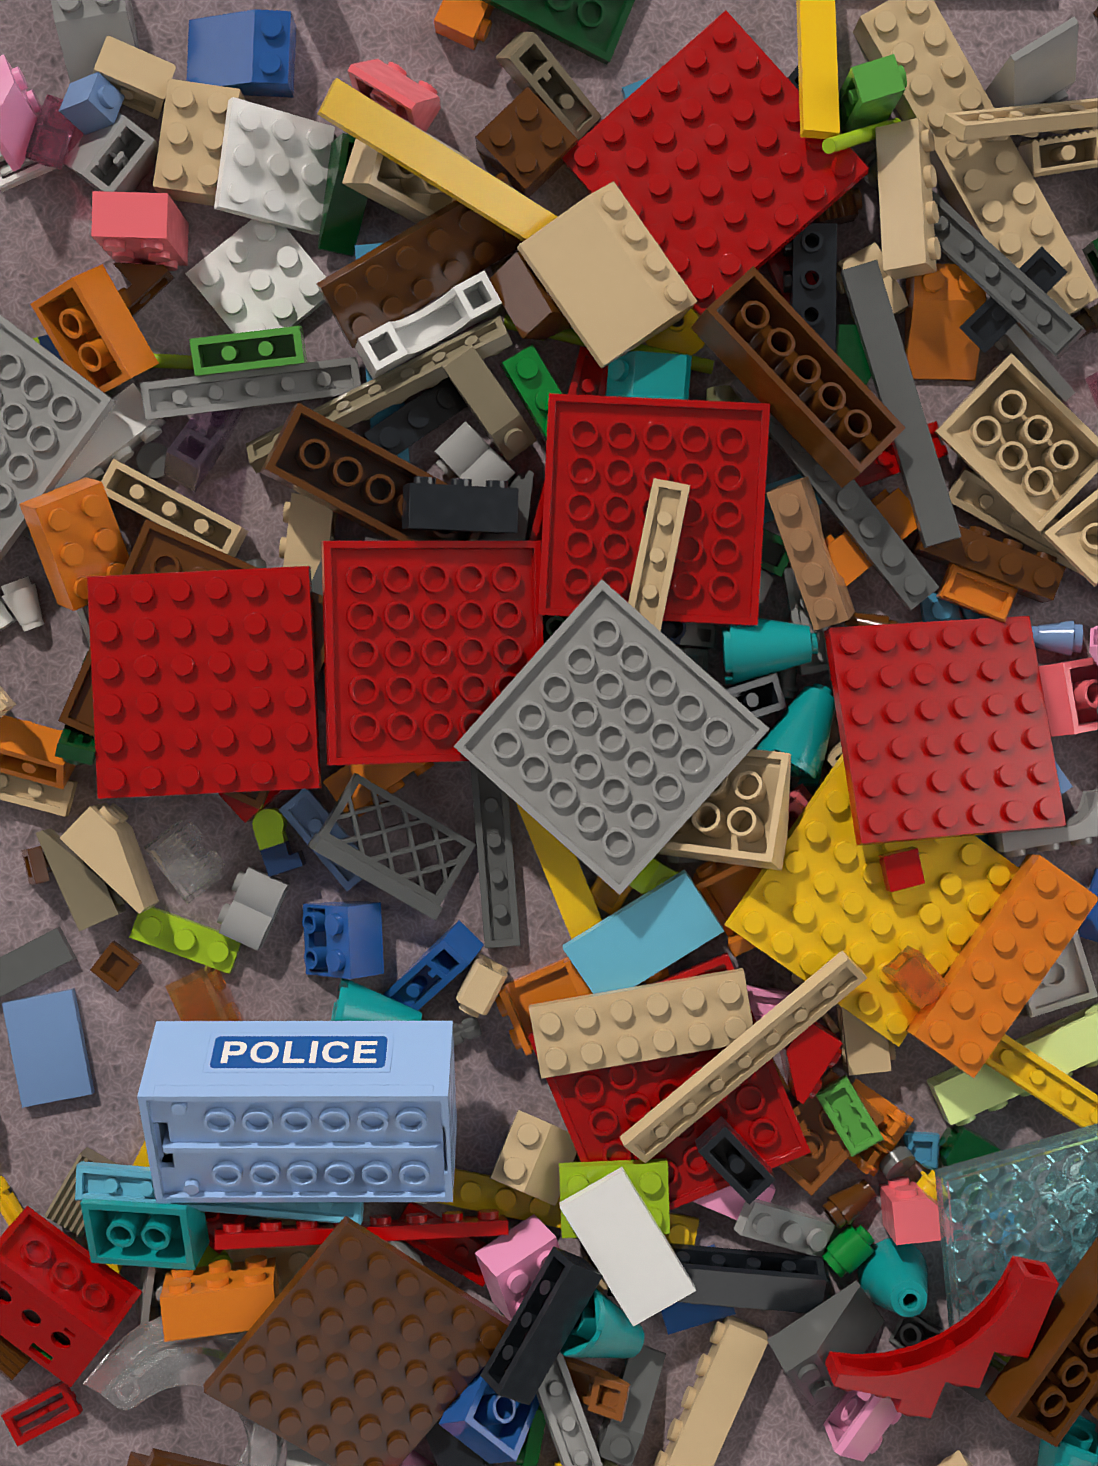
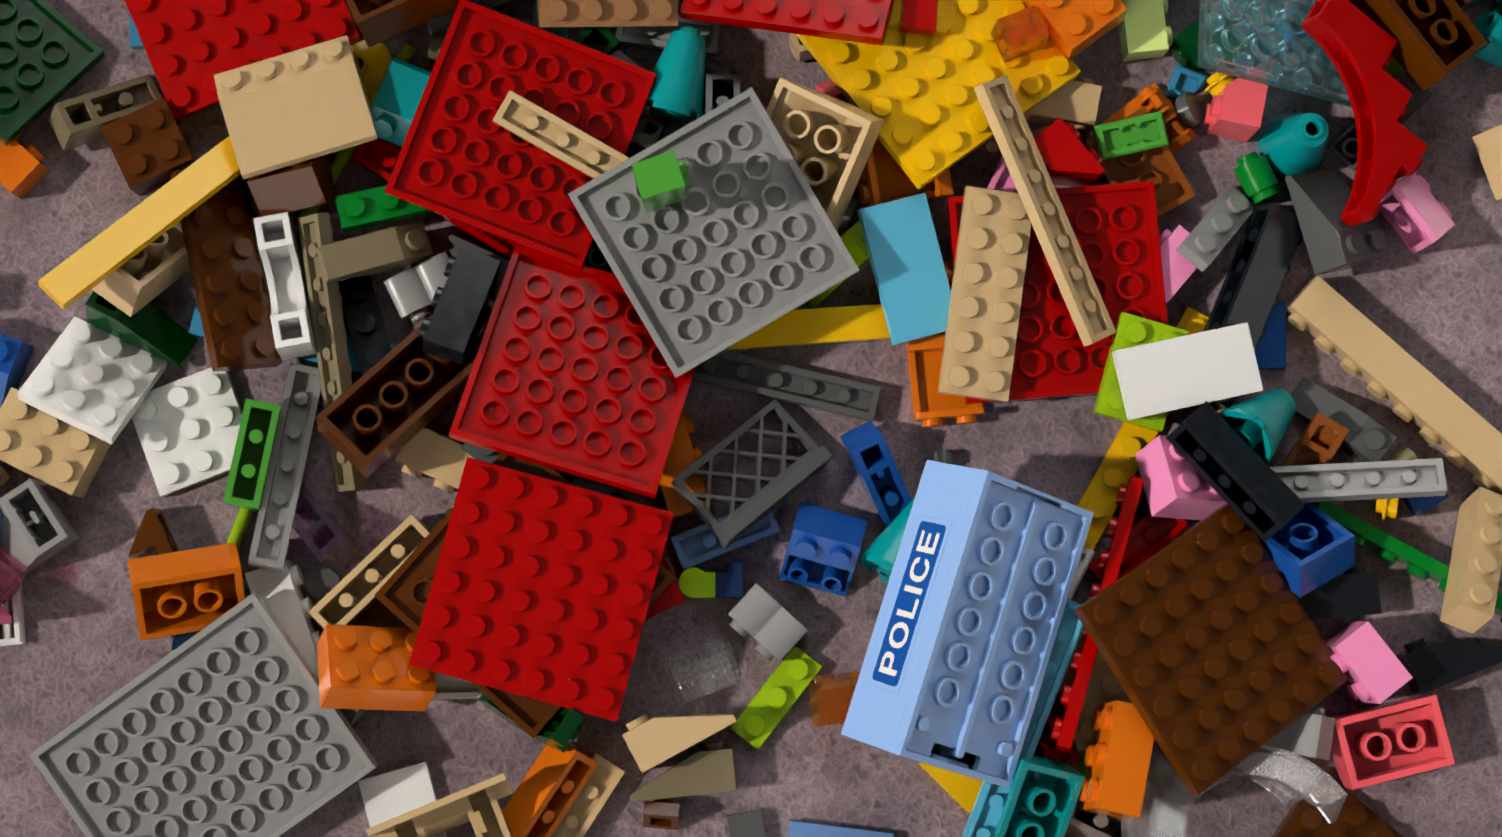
camera: 75 degrees left, 5 degrees down
(23, 602) = (413, 746): white cone -> none
(116, 966) = (780, 771): reddish brown plate -> none
(140, 228) = (106, 516): coral brick -> none
(396, 92) = (53, 249): coral slope -> none
(481, 986) = (906, 432): tan brick -> none
(533, 1156) = (1080, 437): tan slope -> none
(606, 897) = (858, 290): light orange tile -> none
(637, 673) = (661, 180): none -> bright green brick
(735, 1160) = (1137, 247): black brick -> none
(804, 733) = (764, 62): teal cone -> none
(848, 1204) = (1215, 167): reddish brown cone -> none

